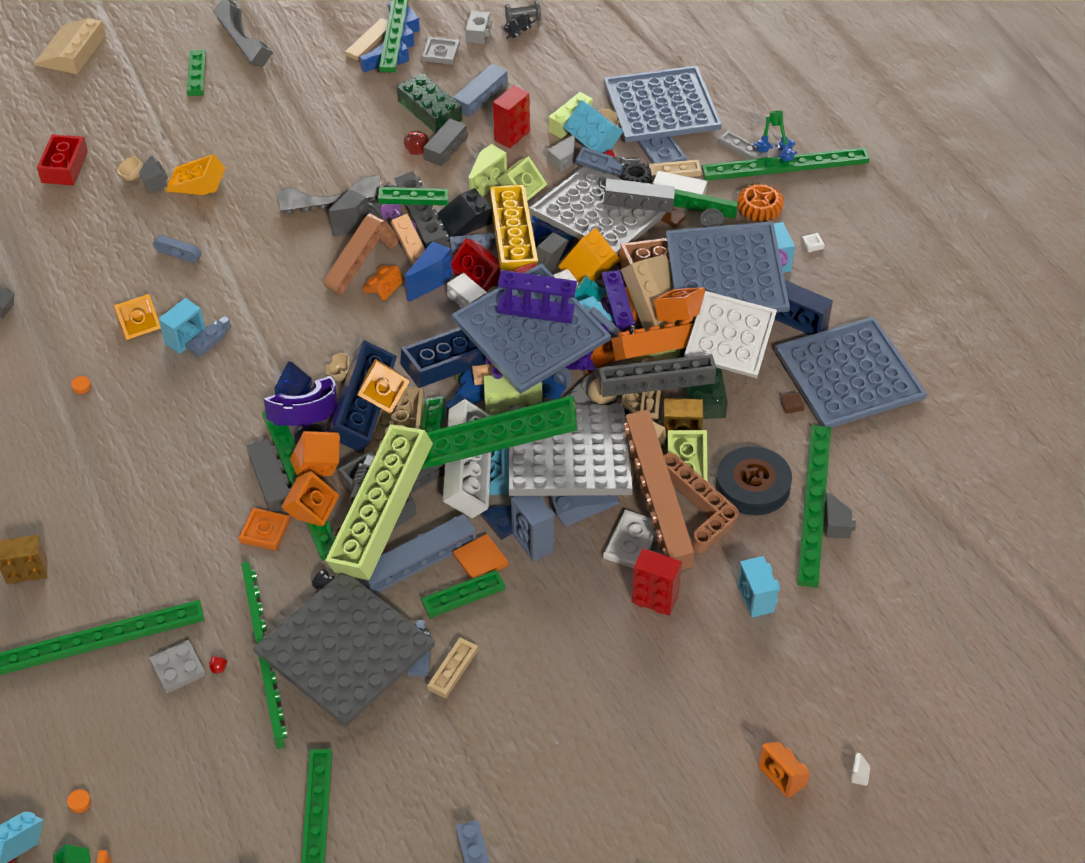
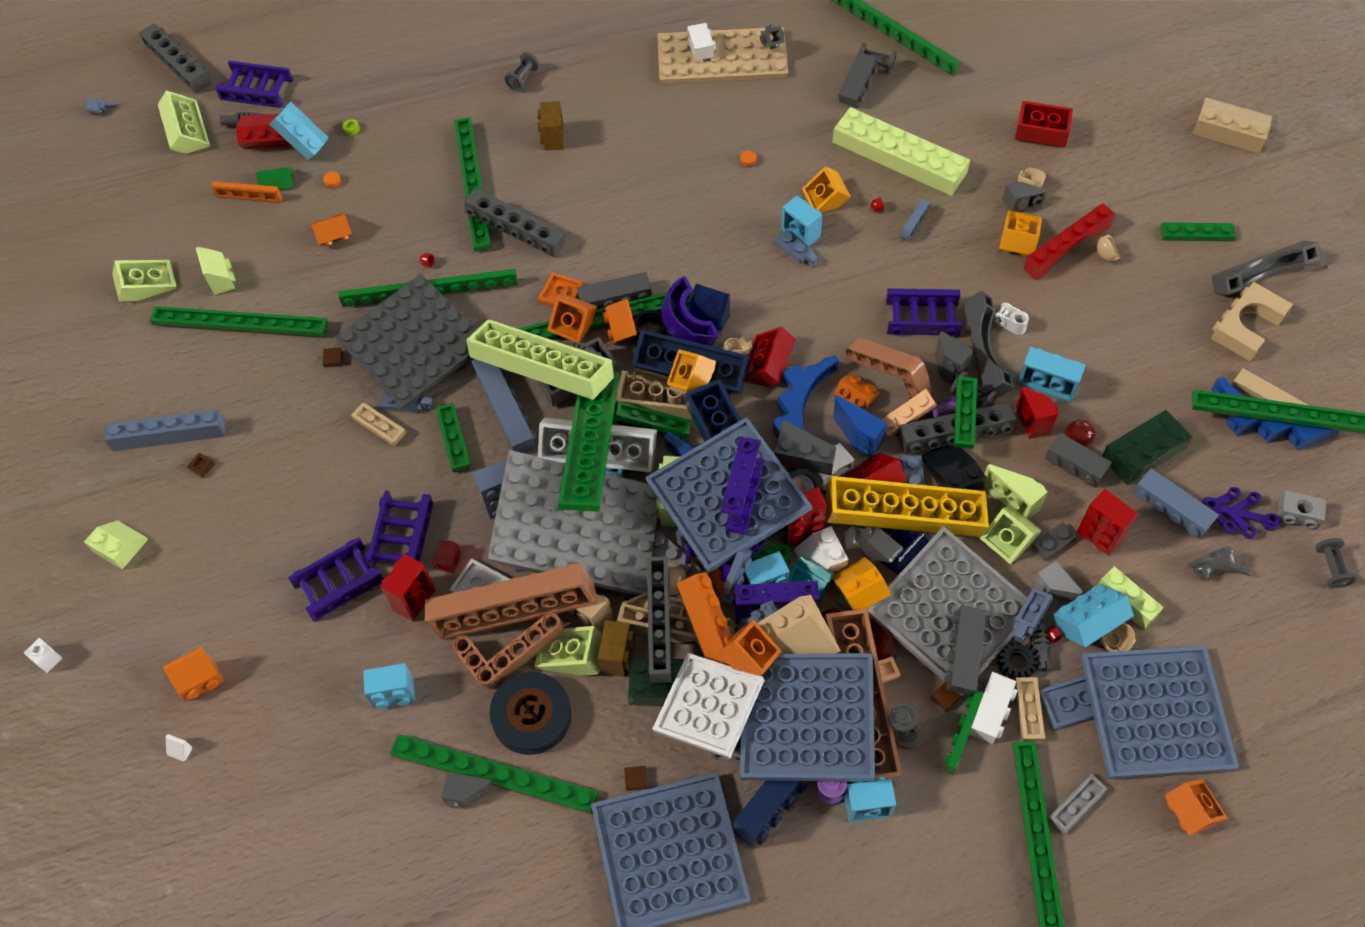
camera: 100 degrees right, 10 degrees up
(84, 263) = (901, 151): none -> yellowish green brick
(154, 277) = (877, 205): none -> red hinge
(165, 778) = (331, 229): none -> orange slope
(170, 577) = (514, 222): none -> dark grey brick
(177, 666) = (434, 234): light grey plate -> none
(191, 130) = (1047, 255): none -> red arch
(219, 121) = (1107, 249): none -> tan hair
(276, 246) = (925, 297): none -> dark purple fence
(299, 179) = (1011, 319): none -> white piece
(306, 55) = (1256, 301): none -> tan arch
(343, 340) = (769, 357): none -> red slope
(362, 737) = (332, 357): none -> reddish brown tile
(363, 151) = (1051, 374): none -> medium azure brick
(402, 324) = (800, 386): none -> blue arch
(404, 159) = (1036, 412): none -> red slope
(440, 50) = (1252, 467): light grey plate -> none
(464, 292) = (803, 450): none -> dark grey wedge
(480, 557) = (489, 451): orange tile -> none
(488, 46) = (1237, 513): none -> dark purple plant
(518, 153) = (1054, 541): none -> dark grey plate
(523, 845) = (200, 465): none -> reddish brown tile
(524, 24) = (1313, 562): black hinge -> none
(531, 70) = (1219, 560): none -> dark grey animal
(583, 601) = (414, 541): none -> dark purple fence
(606, 572) = (447, 556): none -> clear red brick
(639, 312) = (765, 610): none -> sand blue hinge
(654, 647) = (343, 595): none -> dark purple fence
(732, 87) = (1195, 806): none -> orange slope
(760, 202) = (971, 820): orange gear -> none
(784, 145) = (1077, 858): plant -> none
(812, 242) = (894, 858): white tile -> none

